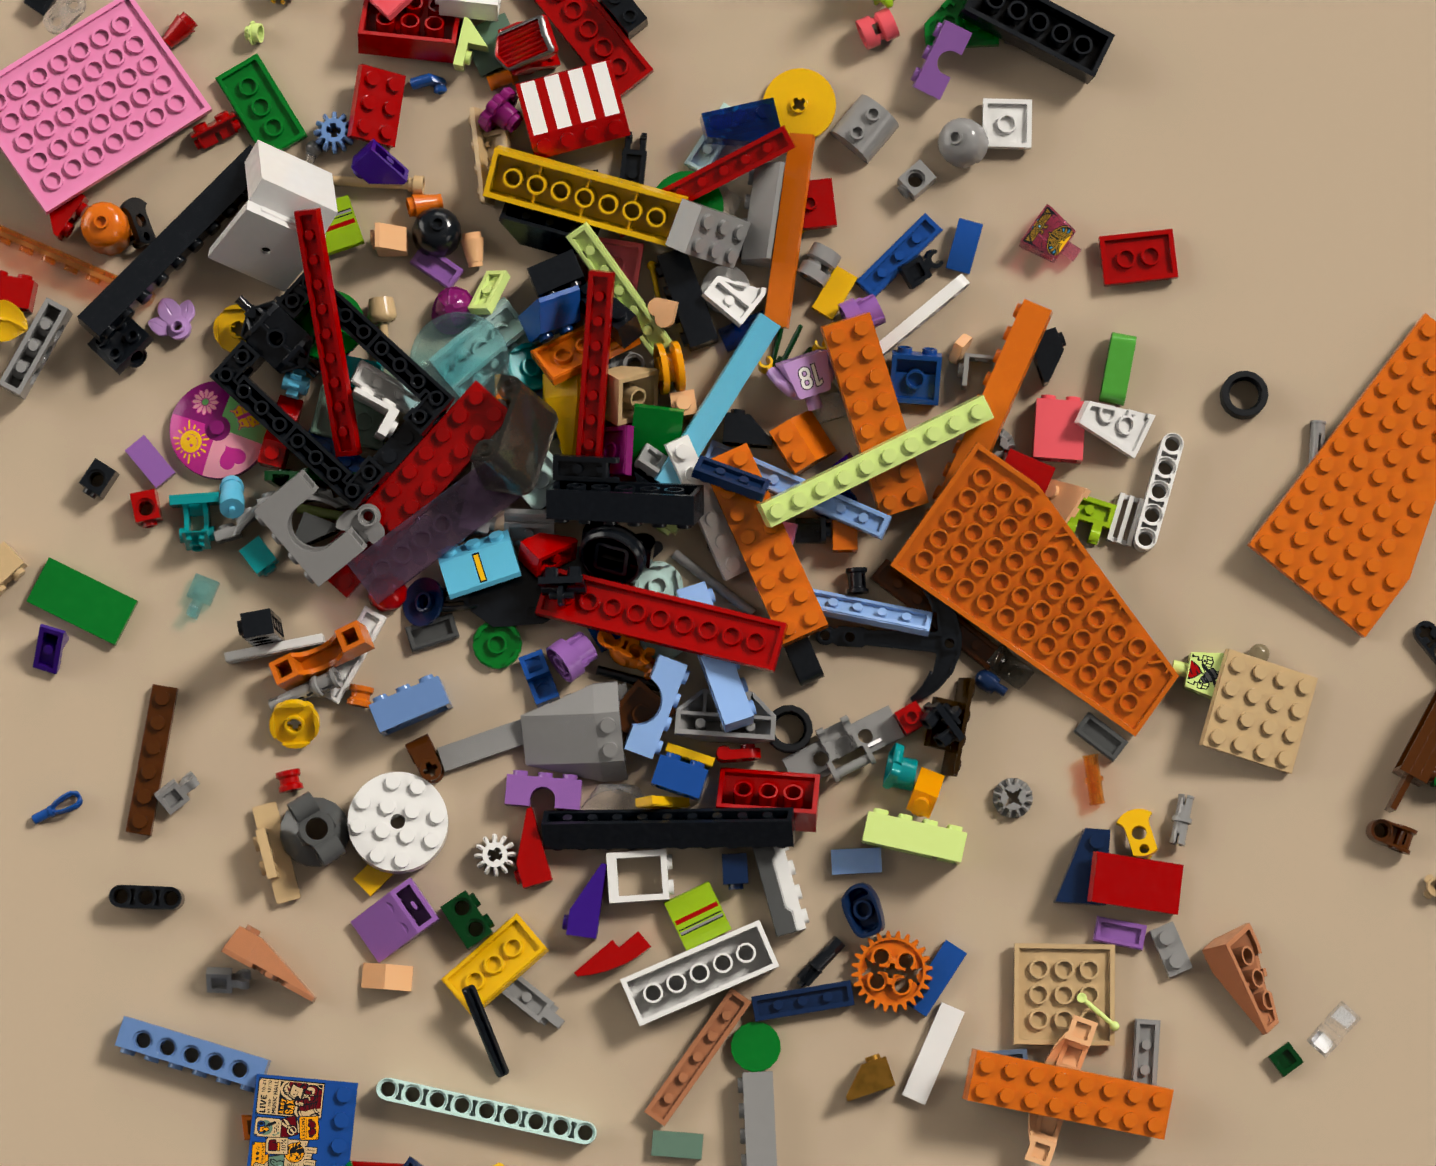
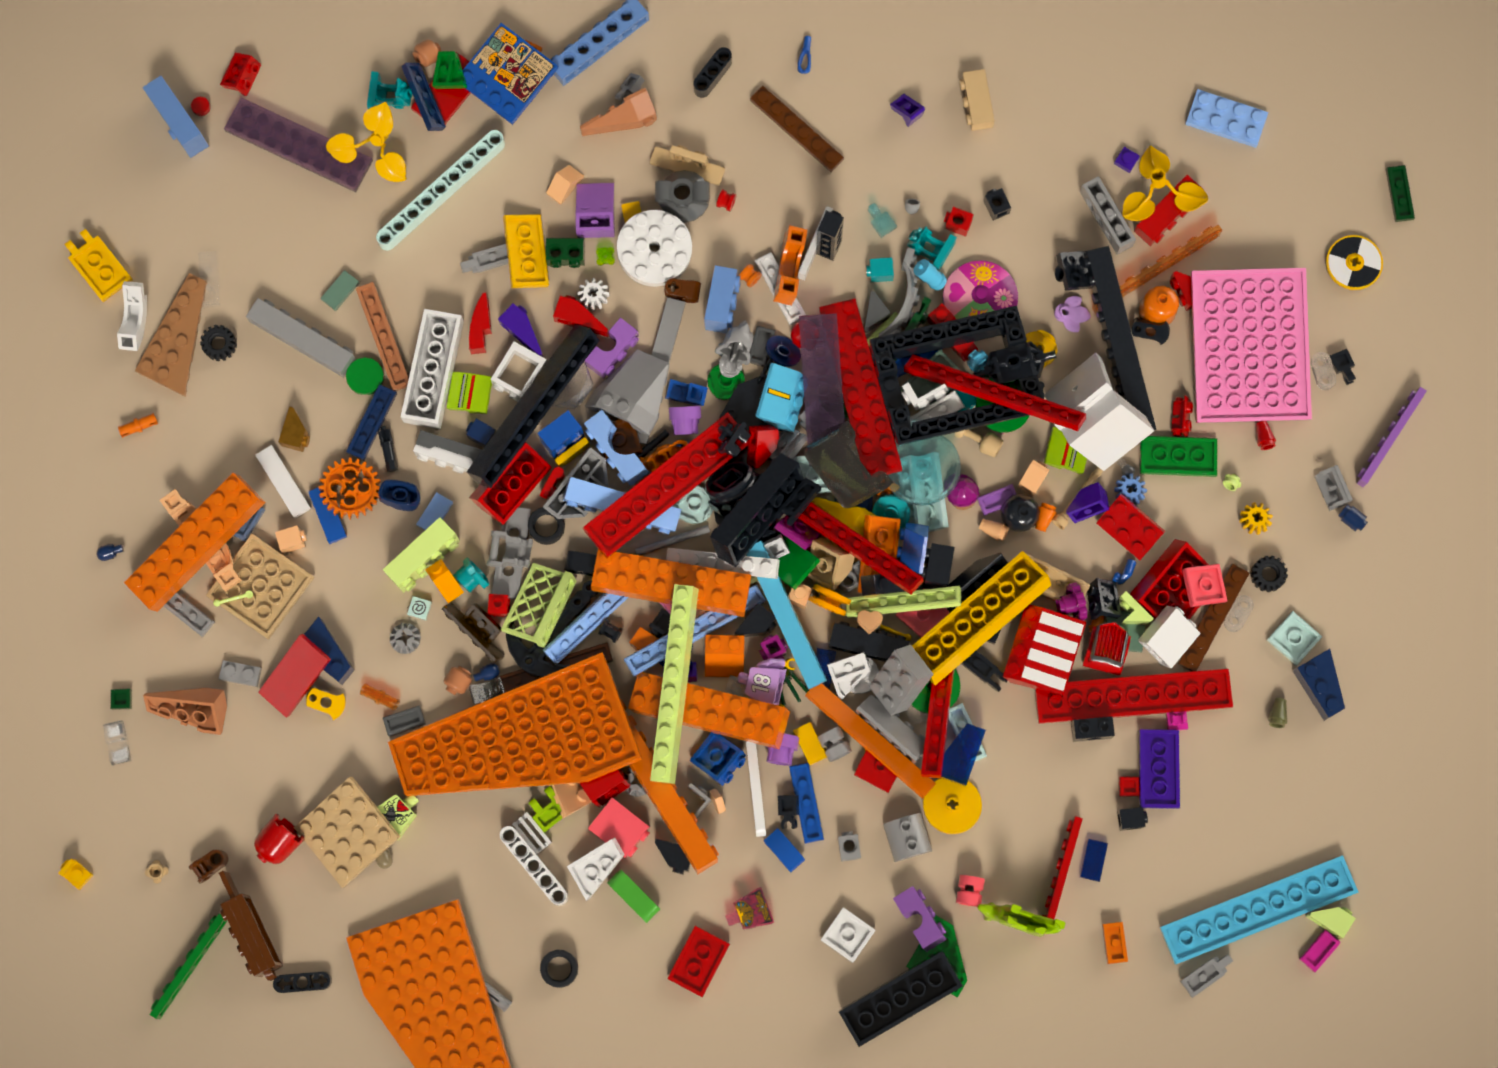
camera: 125 degrees right, 5 degrees down
(82, 601) = (925, 148): green tile -> none
(150, 461) = (987, 243): medium lavender tile -> none
(160, 571) = (912, 206): none -> light grey hinge
(174, 795) = (764, 128): light grey plate -> none
(285, 733) = (763, 232): yellow plate -> none
(315, 687) = (773, 251): light grey pin -> none
(318, 562) = (851, 299): light grey arch -> none
(367, 530) = (855, 339): light grey plate -> none
(449, 874) = (605, 251): none -> clear neon green plate
(457, 653) = (735, 350): none -> light grey head
(475, 85) = (1103, 599): none -> black bracket
(485, 1030) = (488, 217): black axle -> none
(489, 292) = (957, 518): yellowish green plate -> none
(662, 802) = (554, 410): yellow tile -> none
(731, 478) = (725, 583): dark blue plate -> none
(761, 385) = (773, 642): none -> magenta brick
(878, 654) = (551, 613): none -> yellowish green fence
(945, 719) = (488, 618): black hips -> none
(963, 142) = (854, 895): light grey cylinder -> none
(970, 804) = (419, 608): none -> light aqua tile
(990, 996) = (291, 539): none -> light nougat brick
(1019, 707) = (457, 680): none -> nougat head
(1119, 933) = (273, 648): medium lavender tile -> none
(1181, 819) = (314, 735): light grey pin -> none
(1318, 777) = (277, 840): none -> red cylinder

